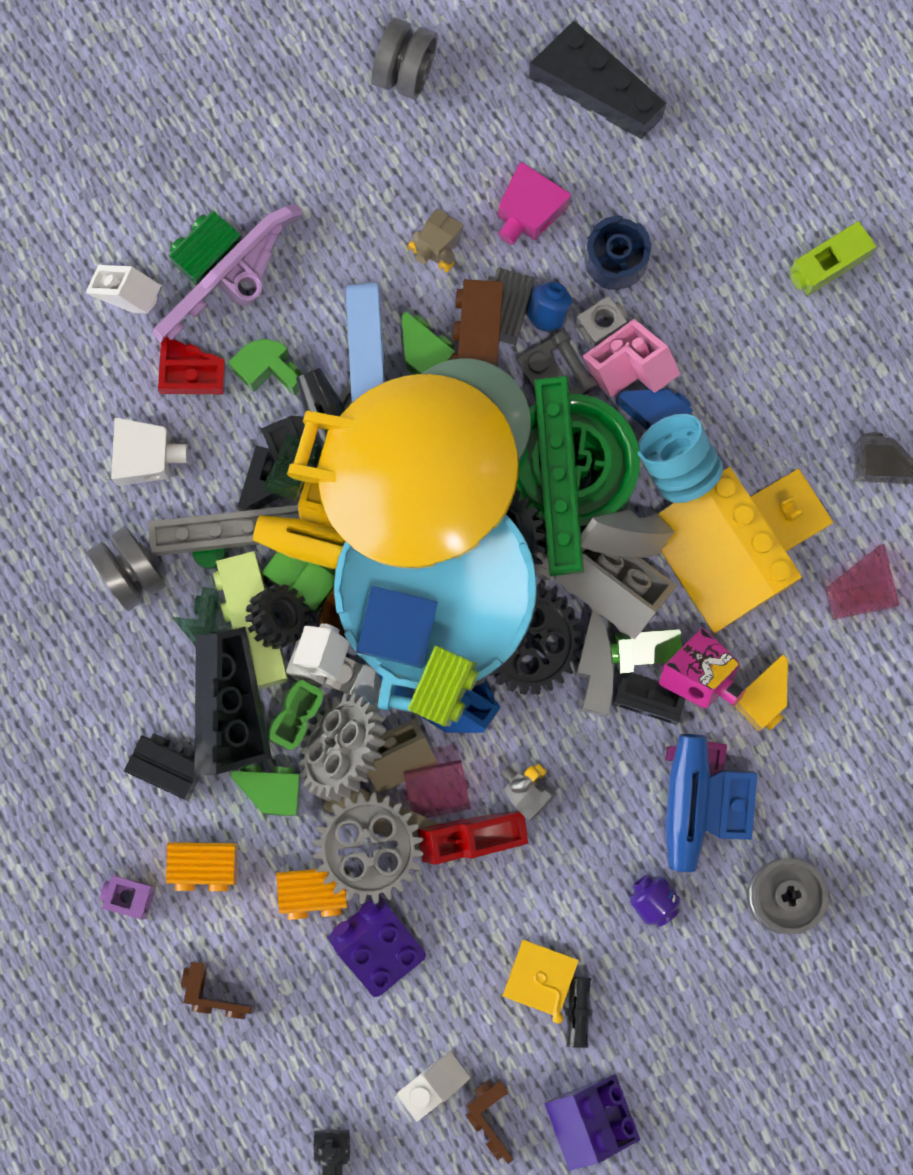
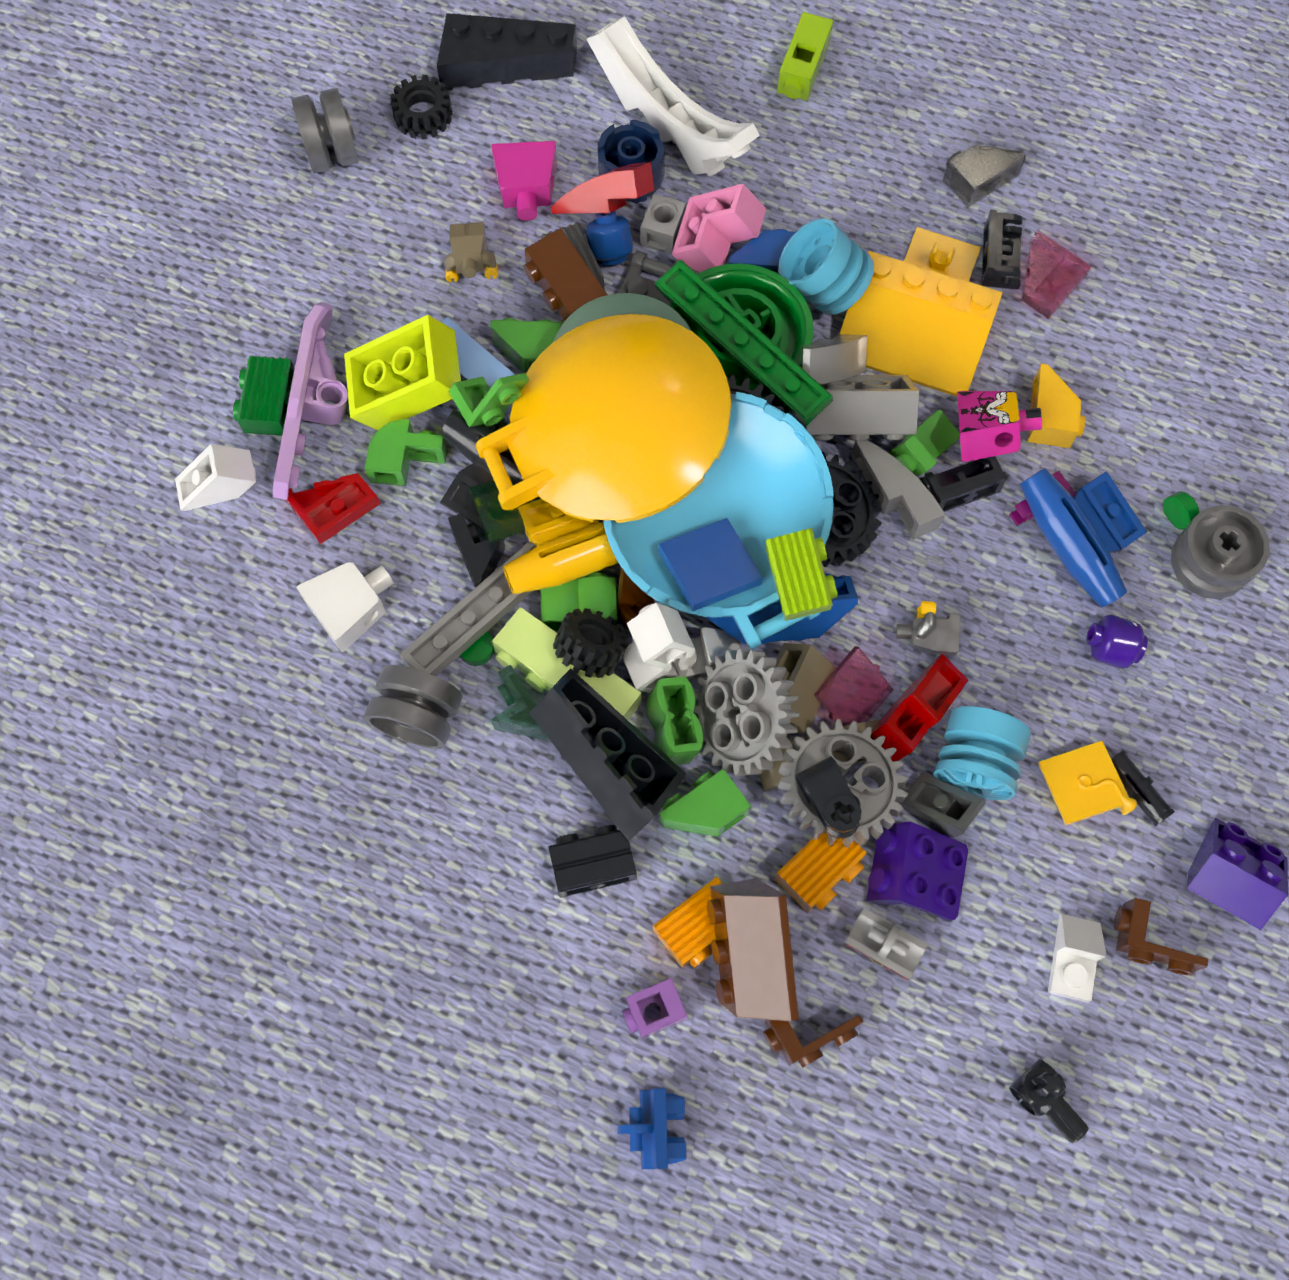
camera: 40 degrees left, 10 degrees down
(59, 985) = (649, 1129): none -> blue hips
(211, 910) = (753, 950): none -> slope
(306, 310) = (402, 372): none -> neon yellow brick
(310, 976) = (886, 944): none -> light grey hips
(337, 378) = (484, 404): none -> bright green bracket
(342, 847) = (828, 791): none -> black piece
(427, 914) = (942, 805): none -> dark grey slope
(482, 904) = (983, 752): none -> medium azure wheel
(492, 68) = (417, 92): none -> black tyre
(572, 270) = (607, 190): none -> slope
(680, 234) = (641, 84): none -> white arch
(792, 843) = (1180, 509): none -> green tile
(844, 540) = (1001, 251): none -> black hinge

